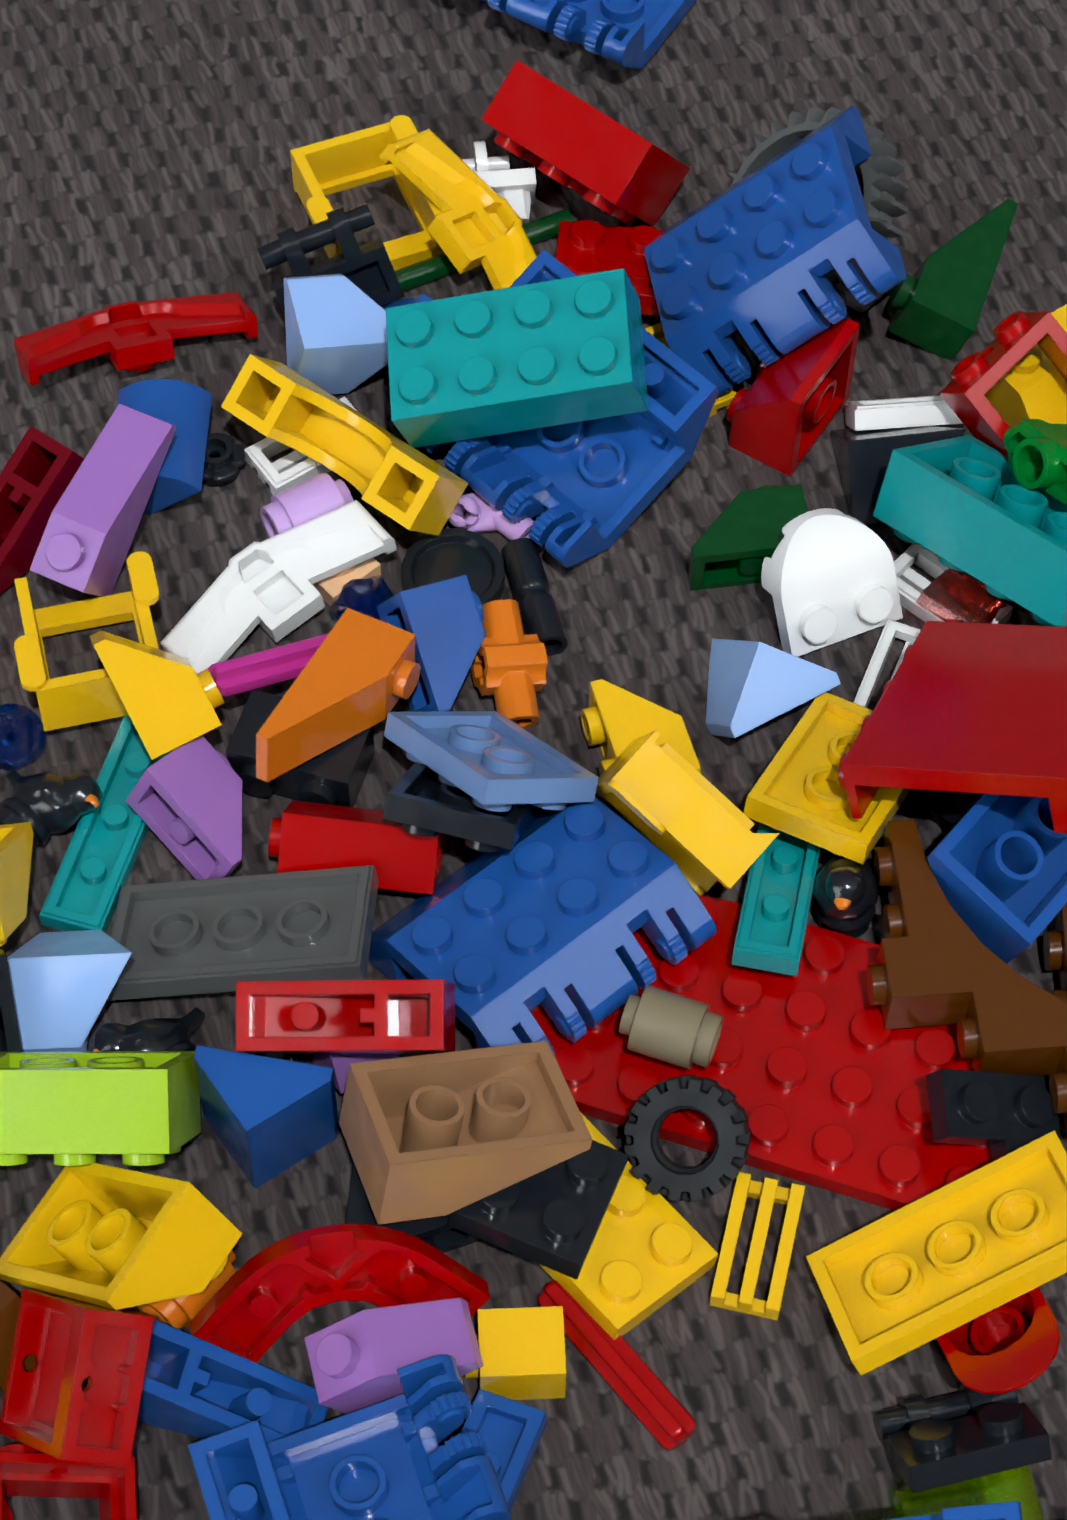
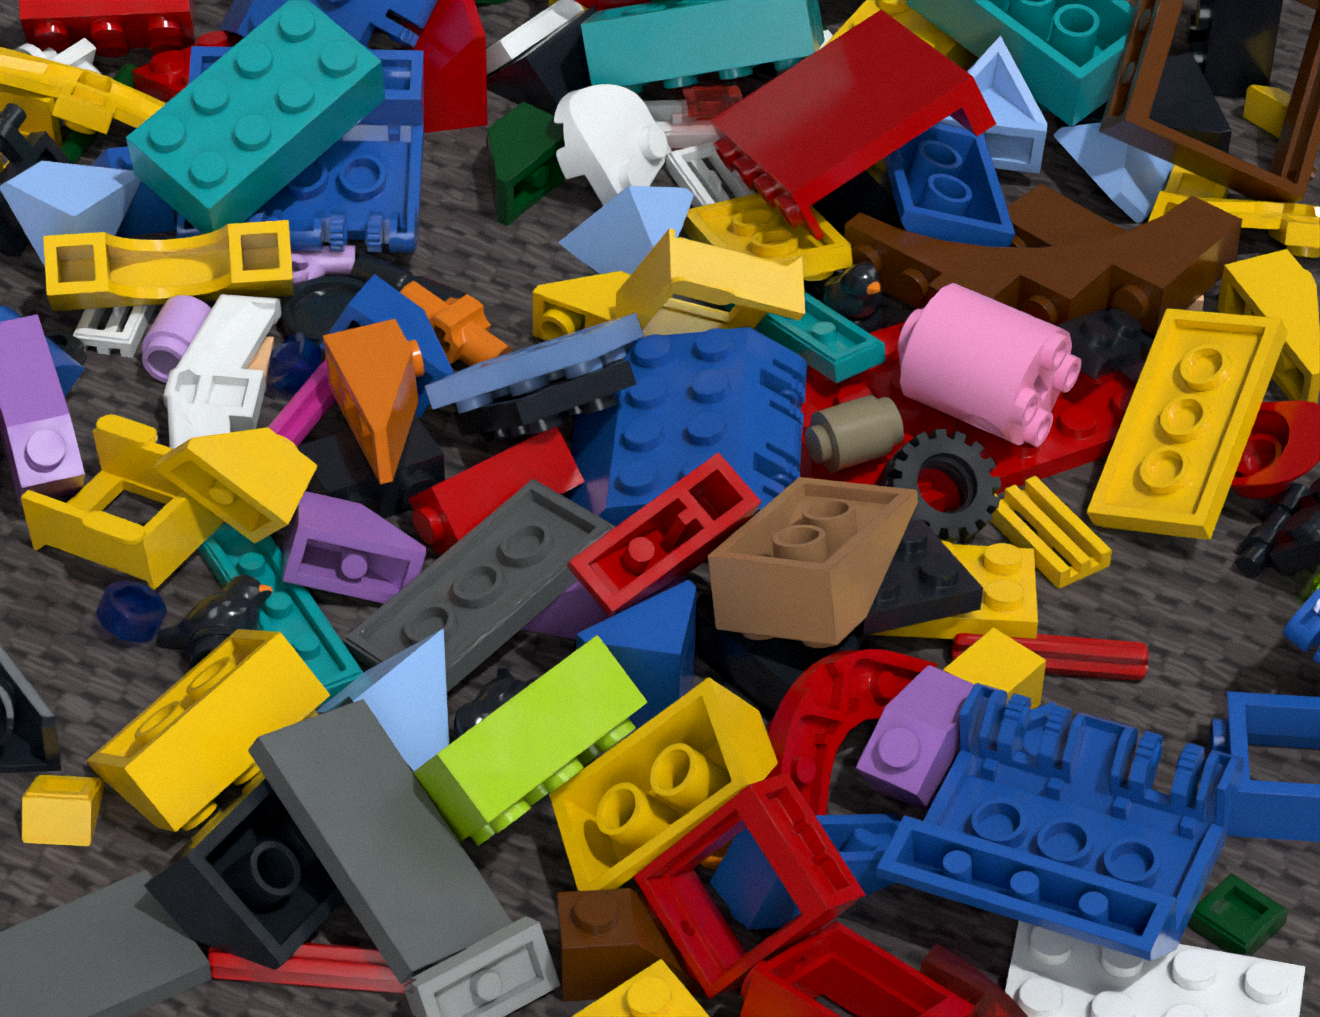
camera: 45 degrees left, 15 degrees down
(834, 1058) = (986, 364): none -> bright pink cylinder

